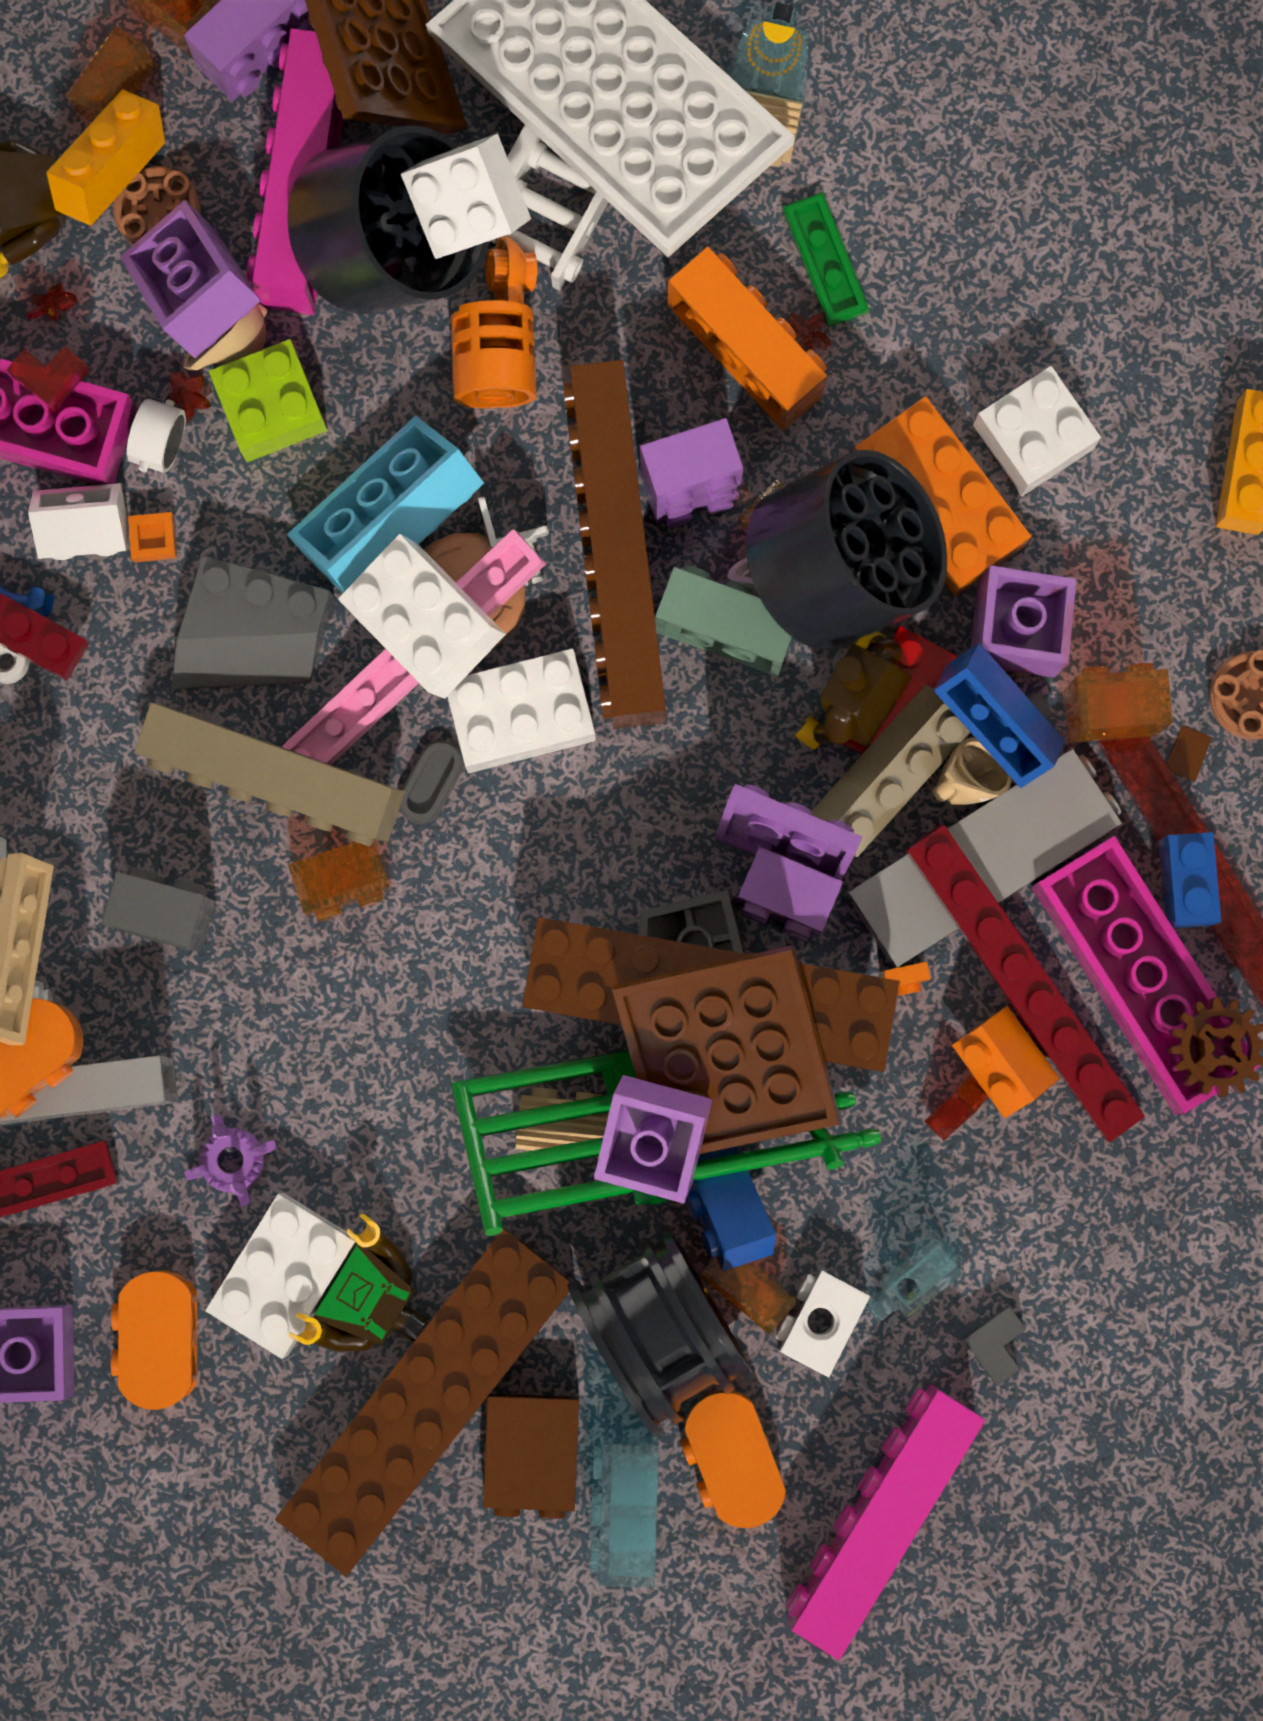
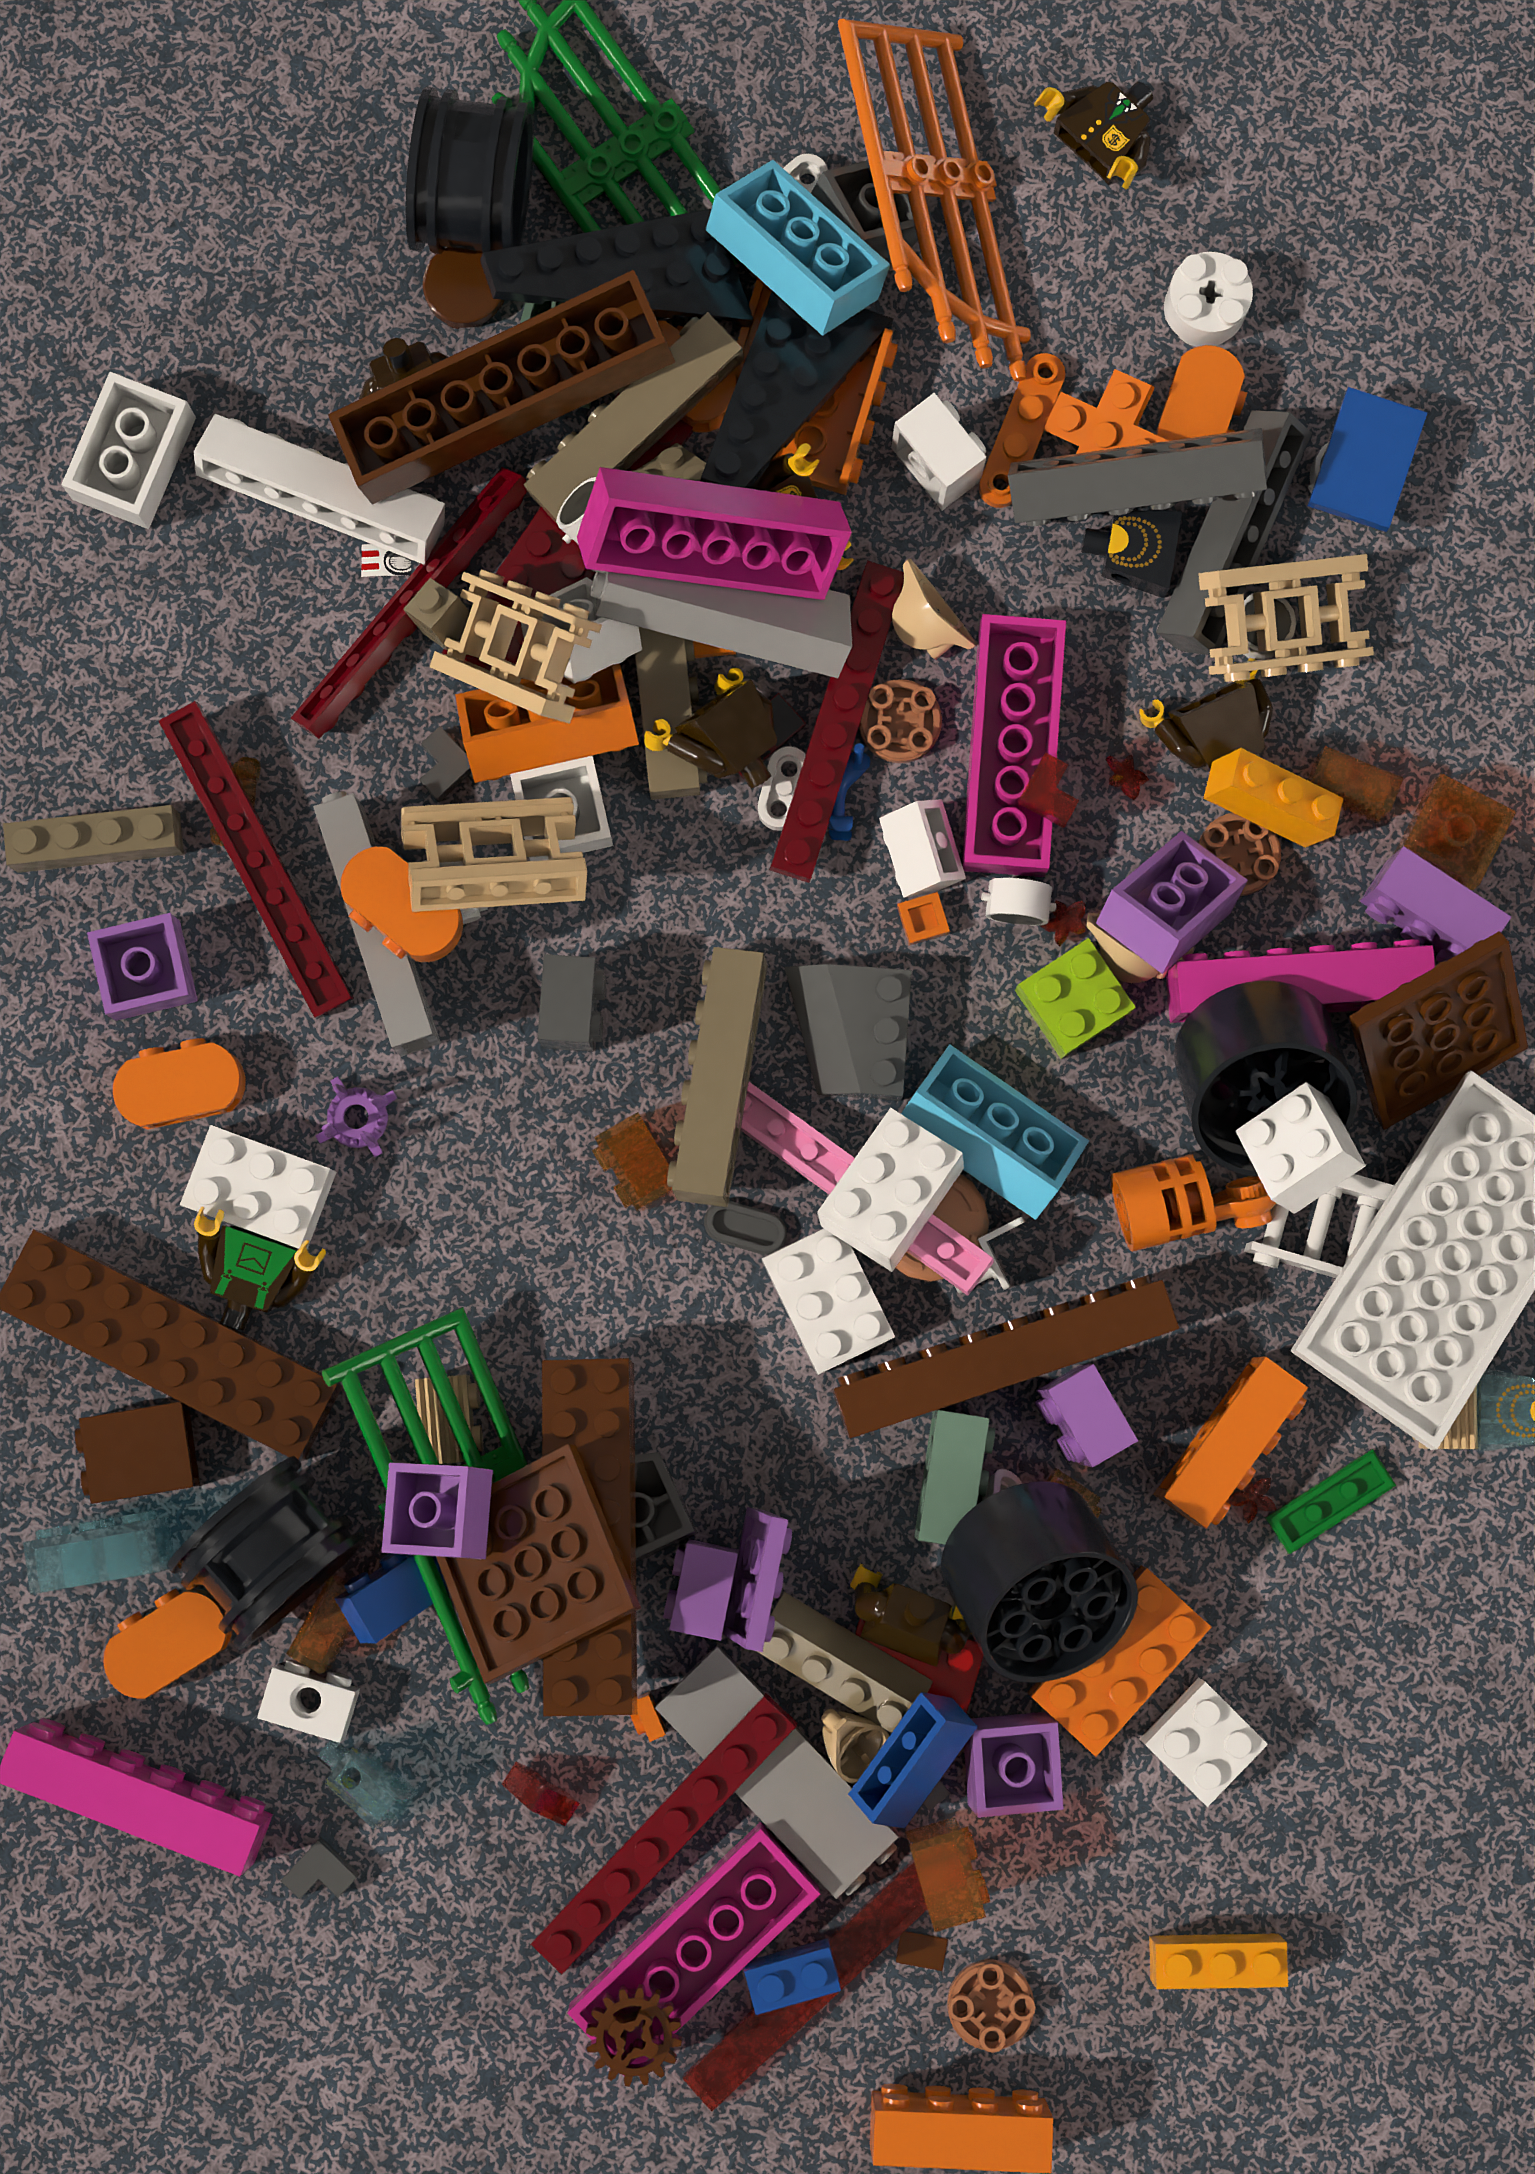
camera: 75 degrees right, 0 degrees up
(1006, 1062) = (585, 1829): orange brick -> none

